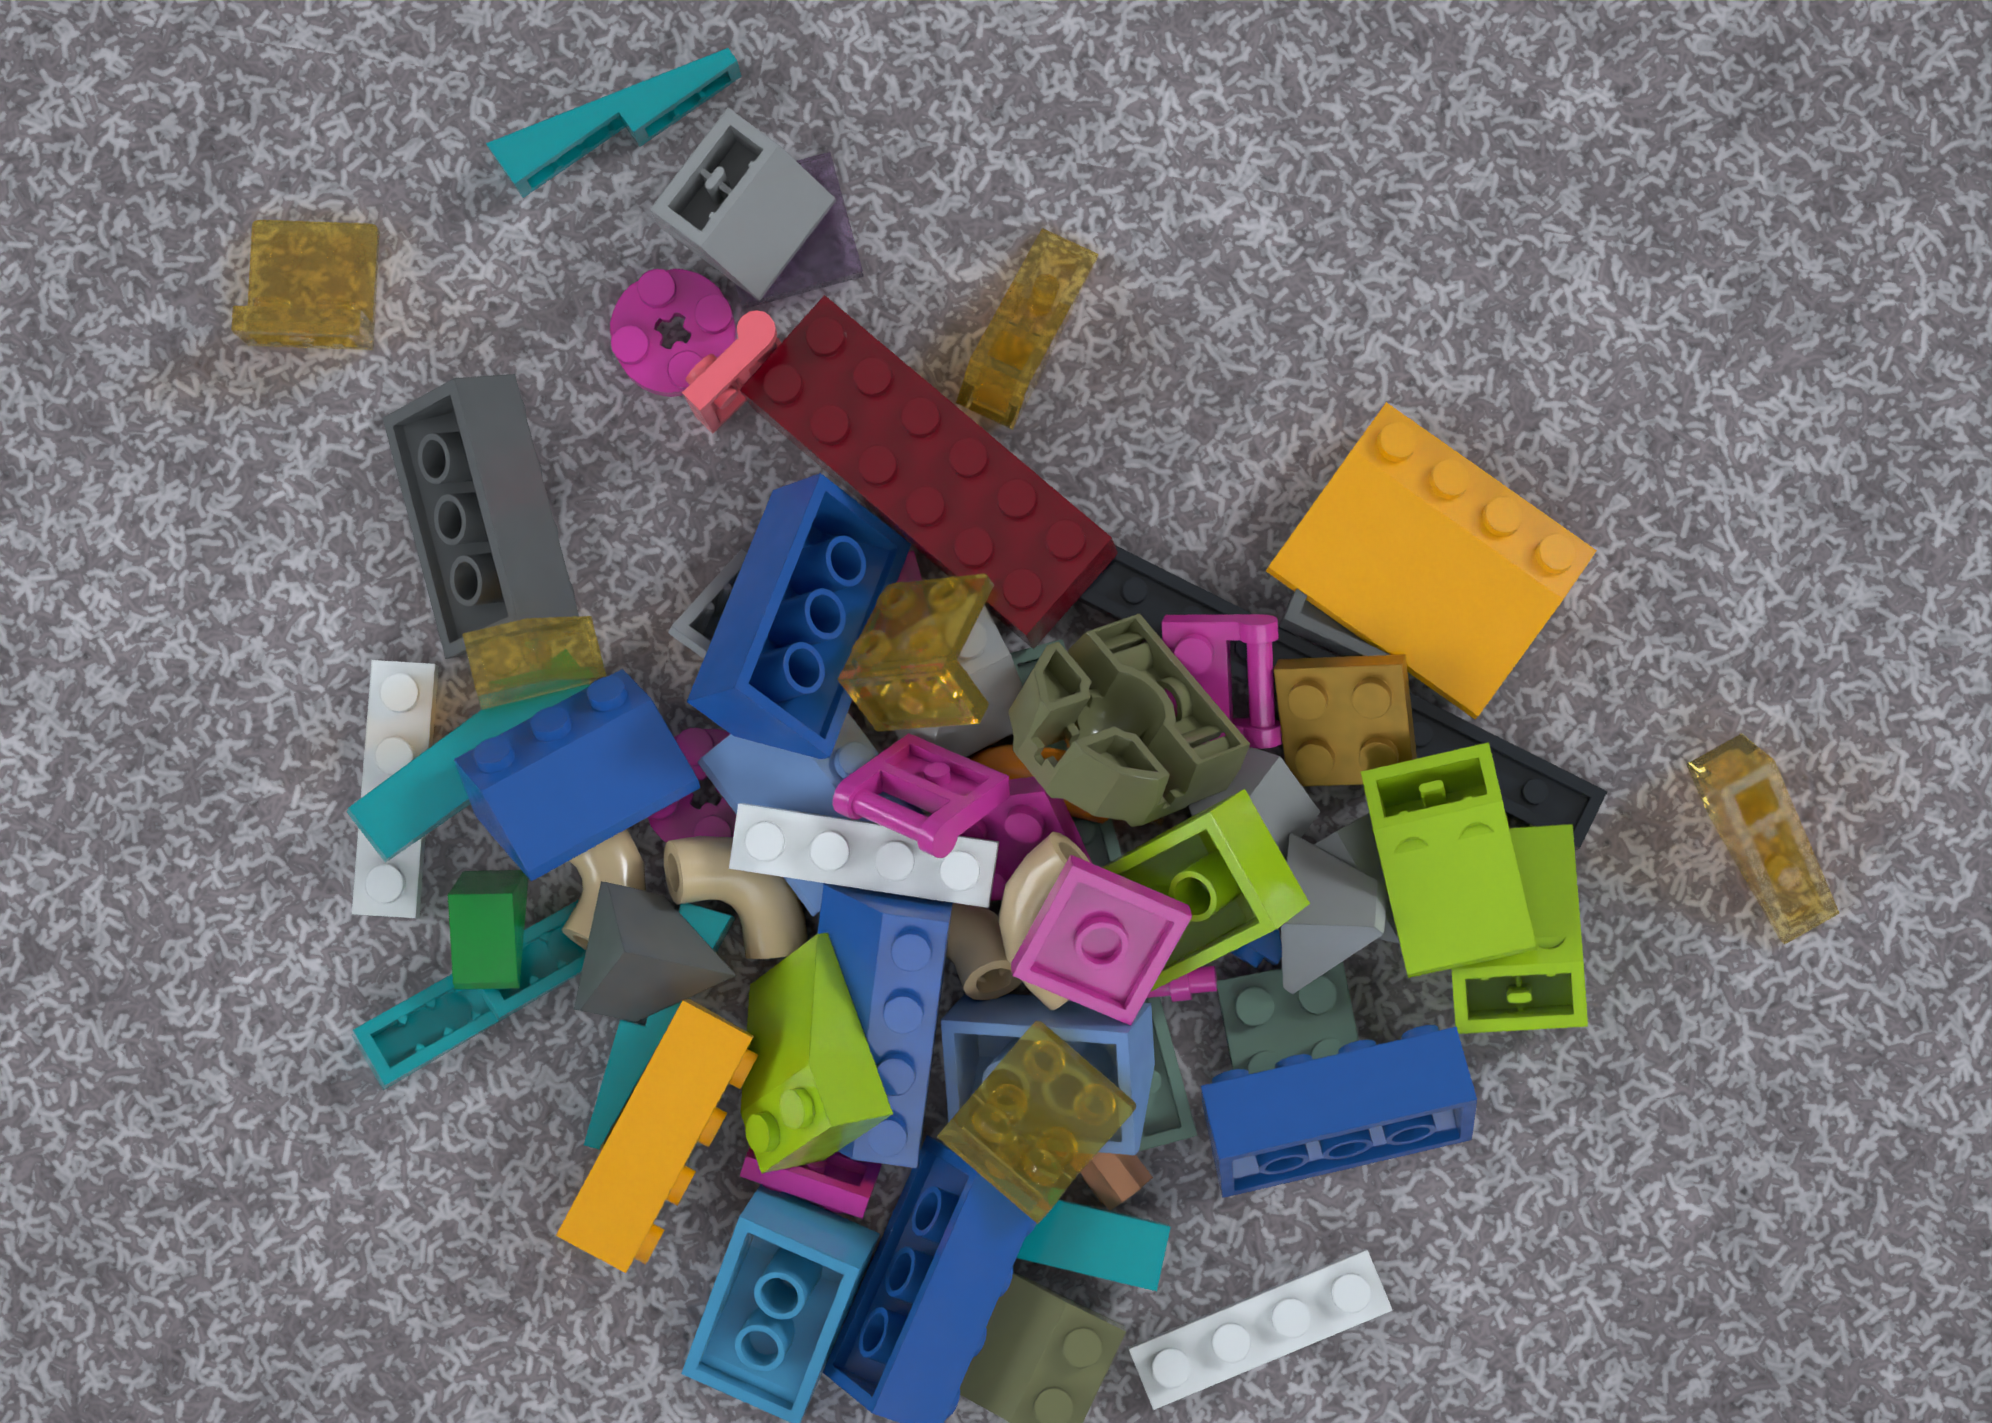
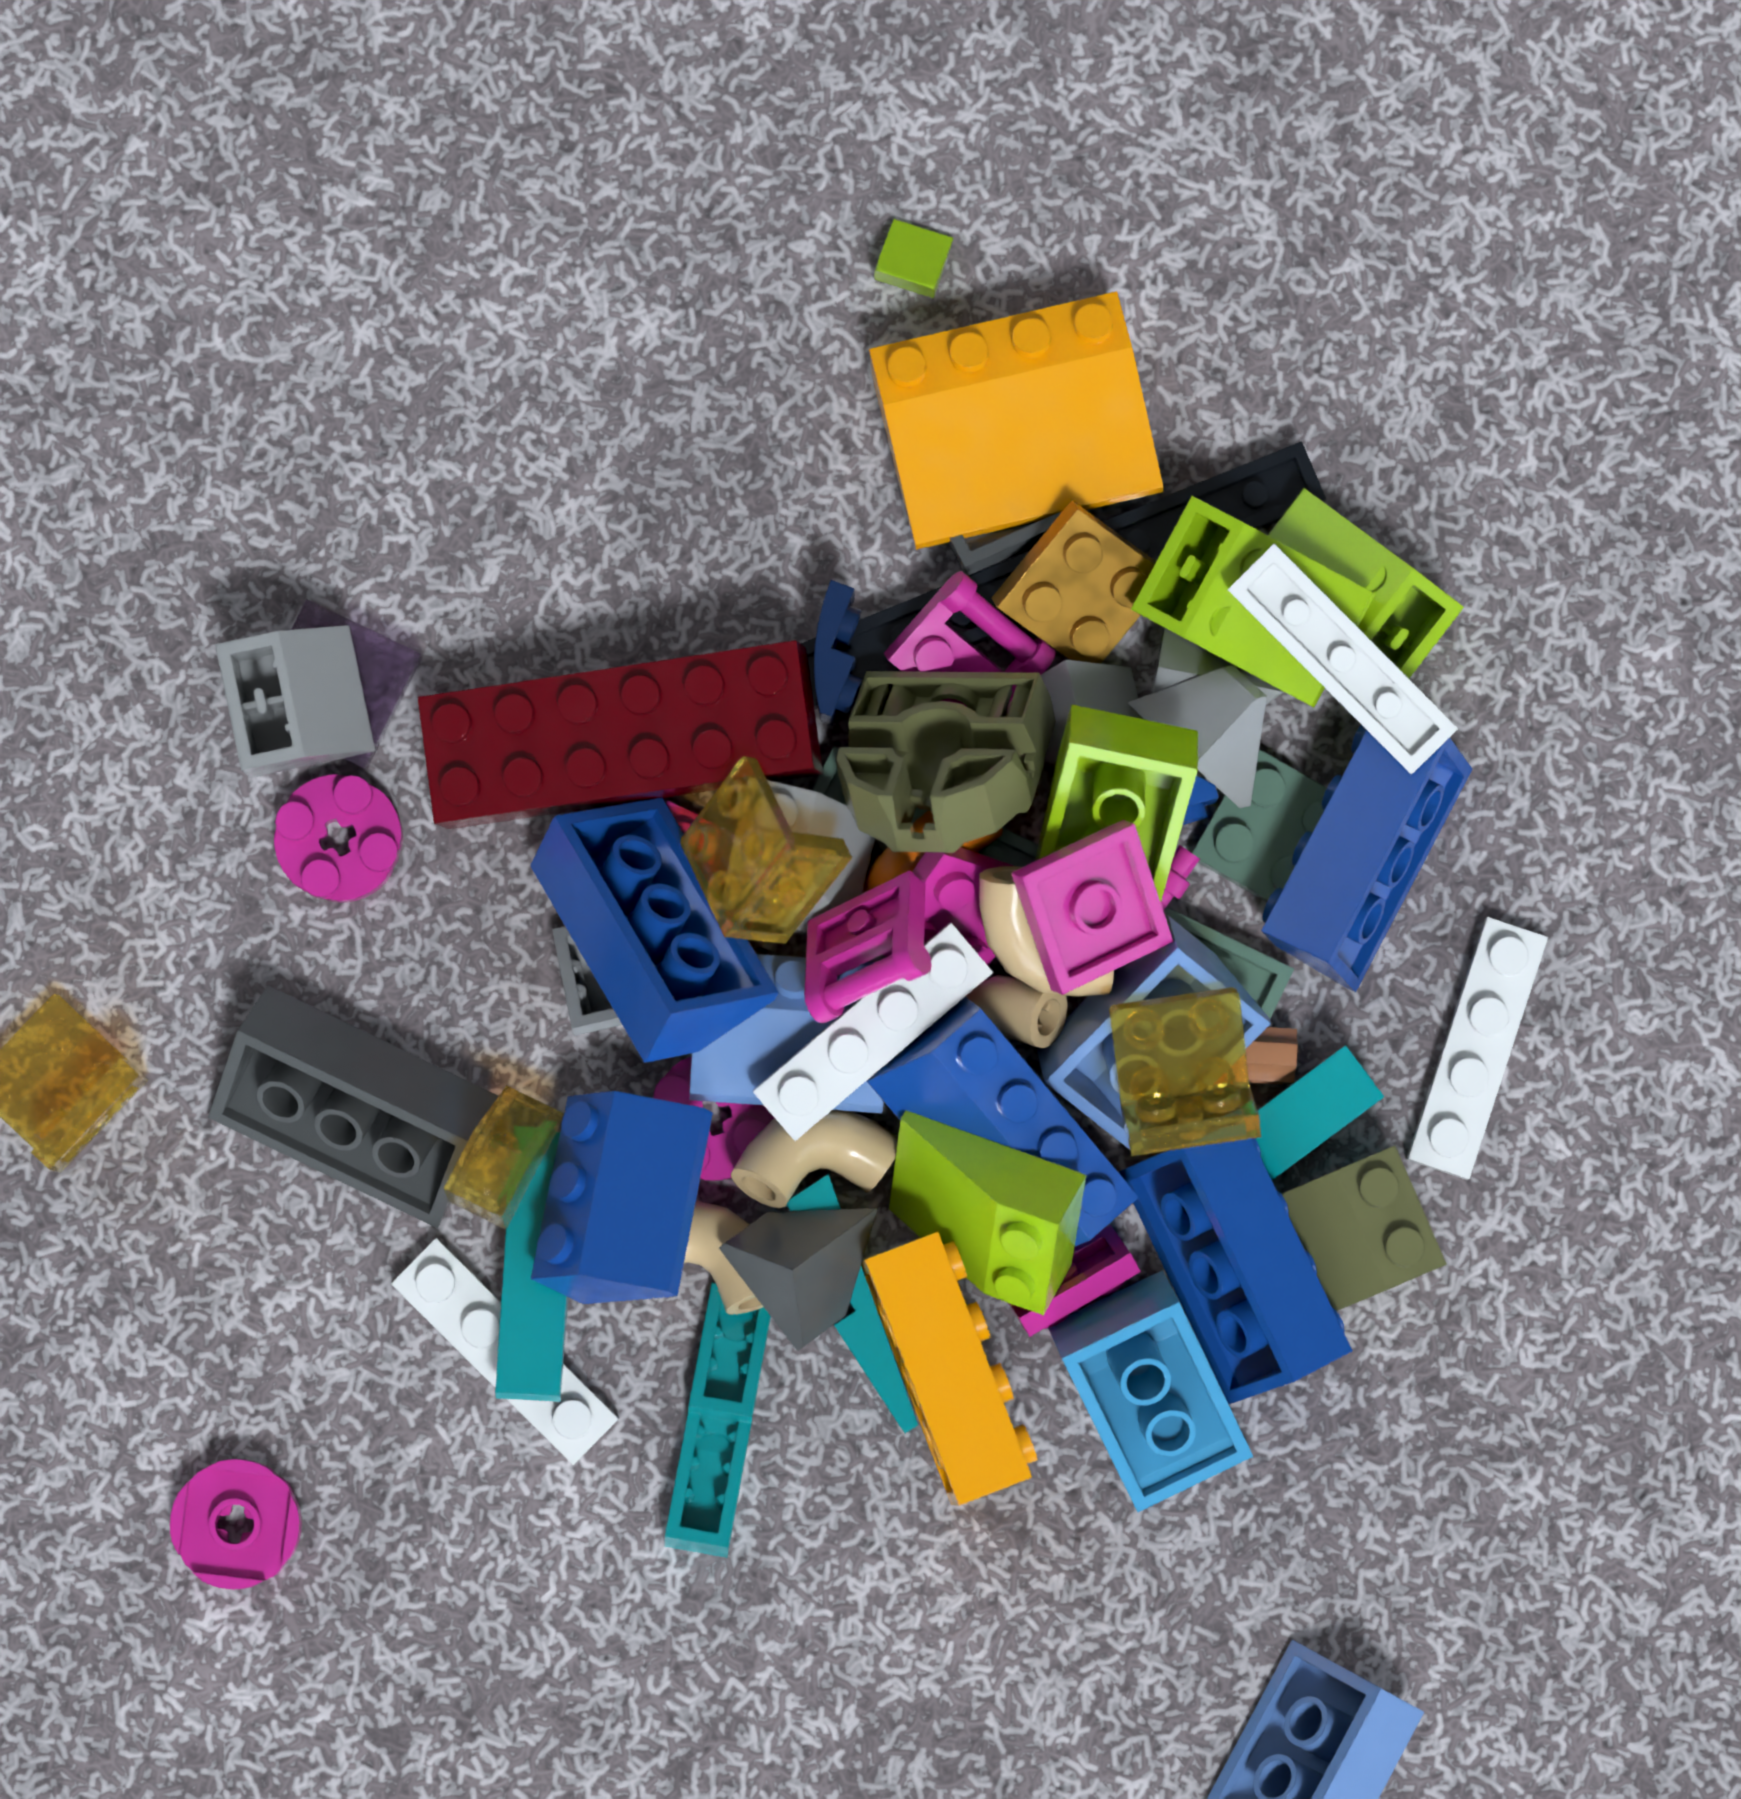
camera: 55 degrees left, 0 degrees up
(58, 694) = (207, 1547): none -> dark pink plate
(487, 928) = (677, 1367): green slope -> none
(645, 109) = (147, 714): teal slope -> none
(717, 382) = (414, 834): coral plate -> none
(1025, 329) = (573, 568): clear yellow slope -> none
(1115, 588) = (833, 669): none -> dark blue slope
(1463, 967) = (1342, 659): none -> white plate
(1486, 378) = (913, 258): none -> lime slope
(1764, 835) = (1434, 354): clear yellow slope -> none

